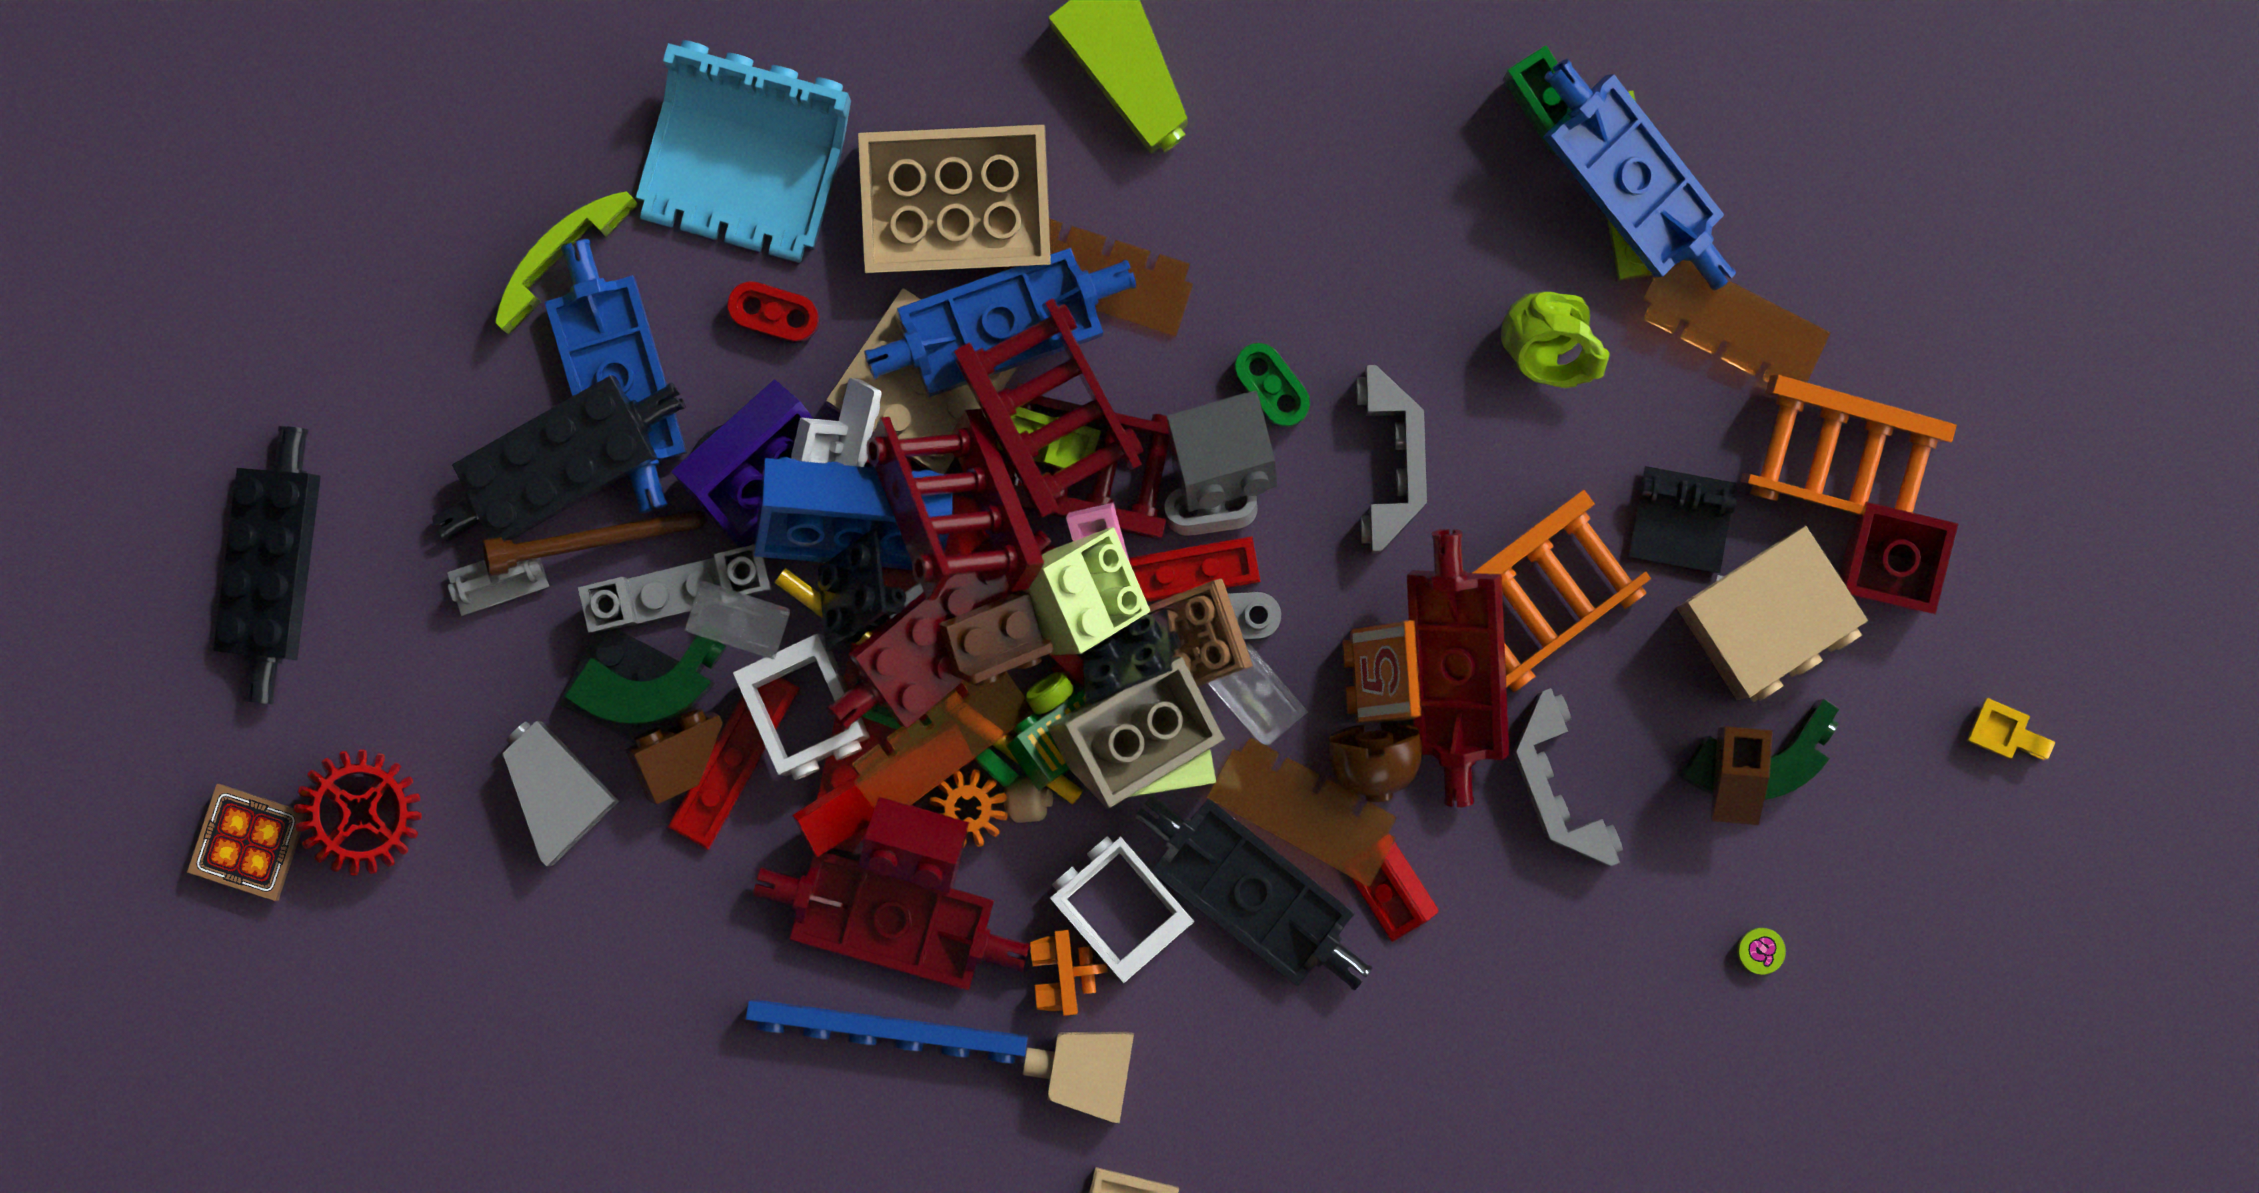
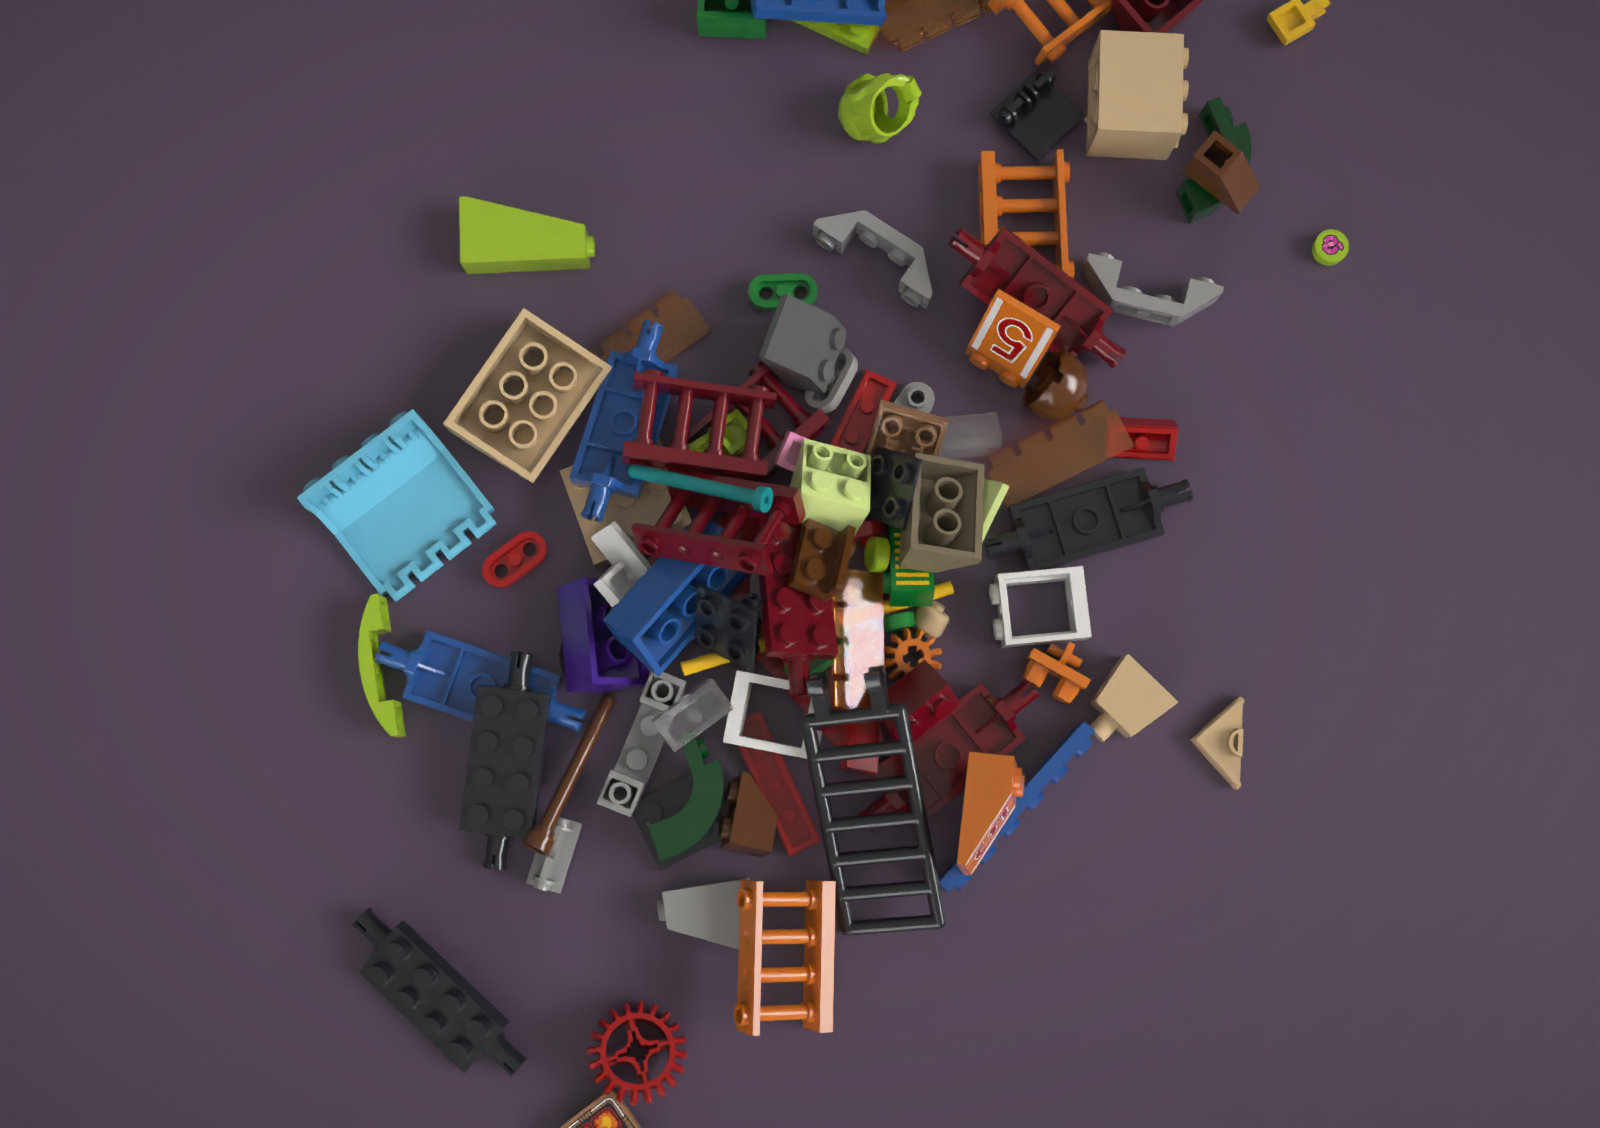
camera: 60 degrees left, 5 degrees down
(566, 938) = (818, 964): none -> orange fence
(859, 993) = (989, 800): none -> orange slope
(875, 812) = (880, 709): none -> black bar
(1003, 531) = (760, 498): none -> teal bar

